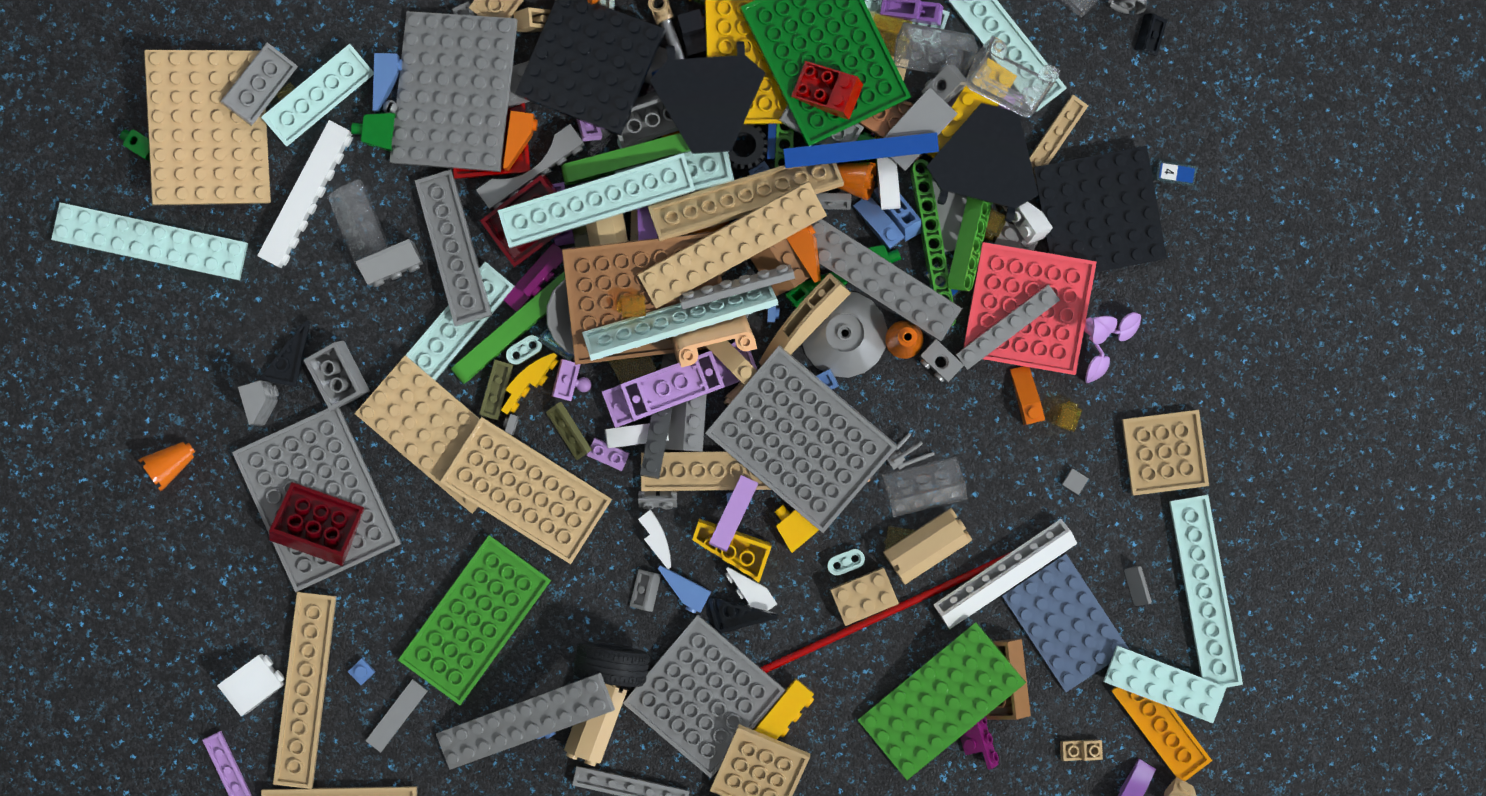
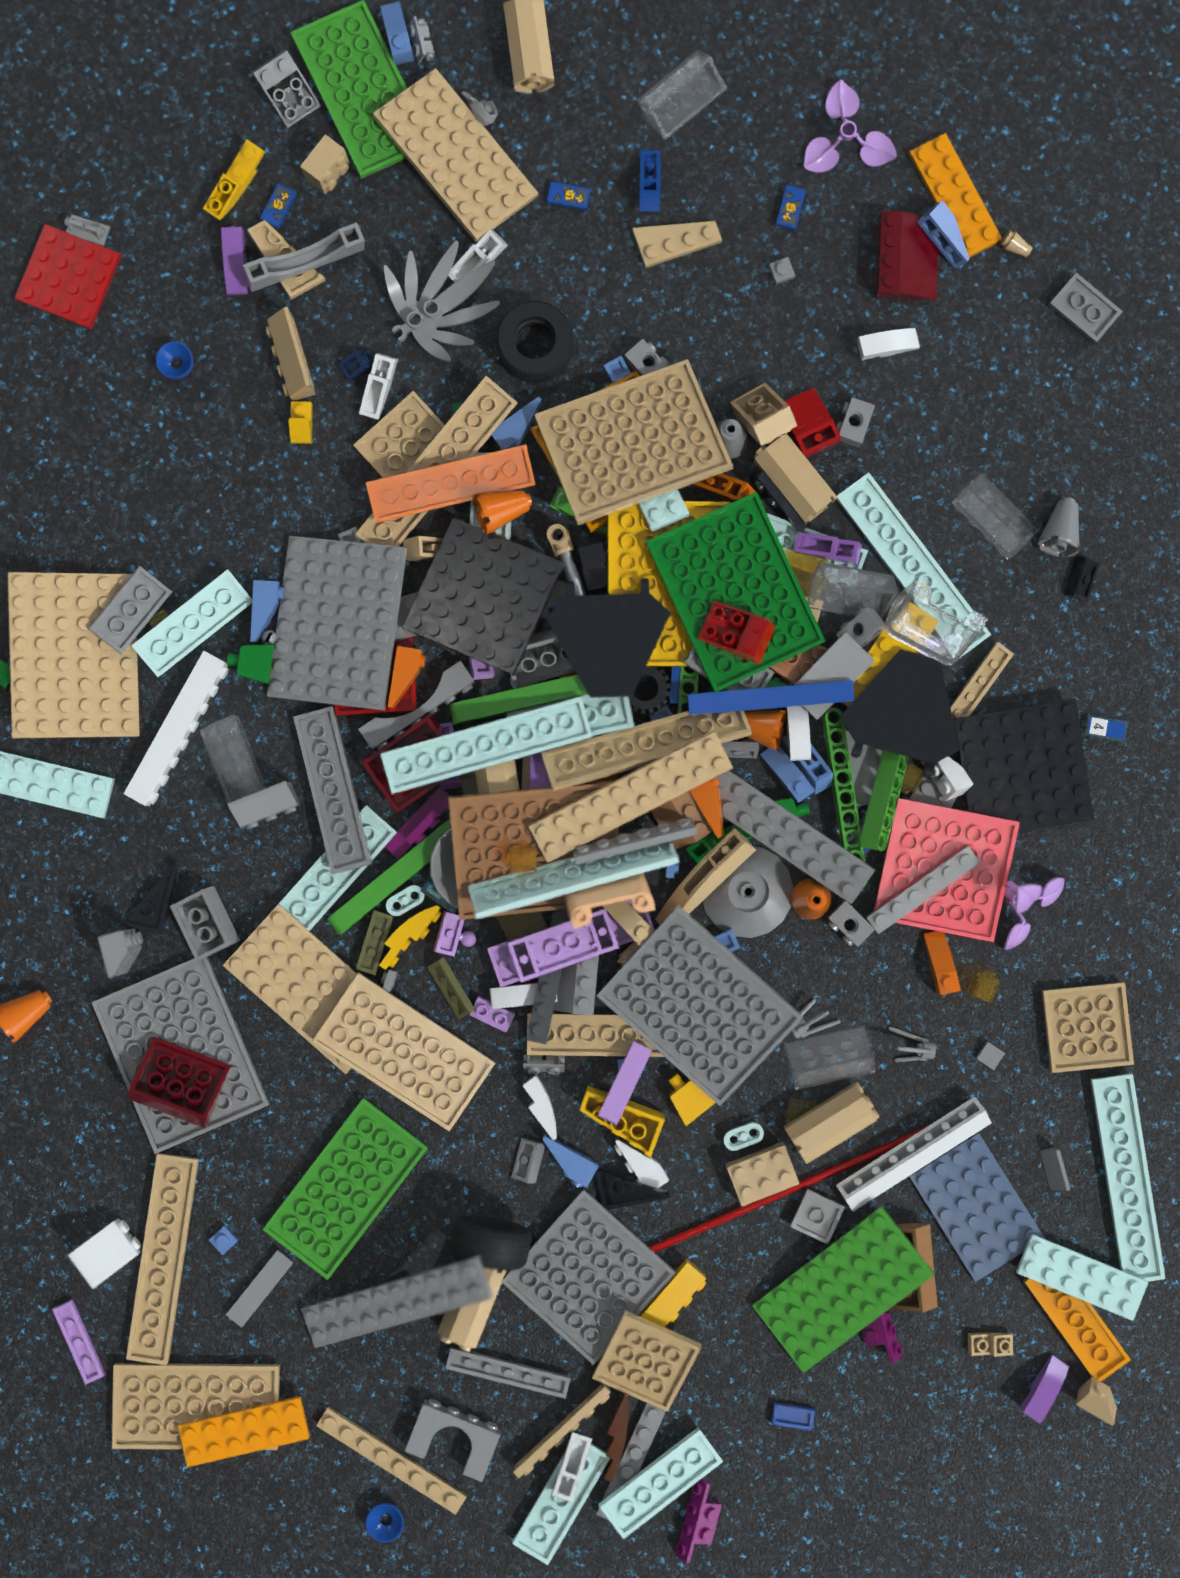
camera: 10 degrees right, 0 degrees up
(916, 635) = (817, 1216): none -> light grey plate
(1013, 476) = (924, 1050): none -> light grey plant

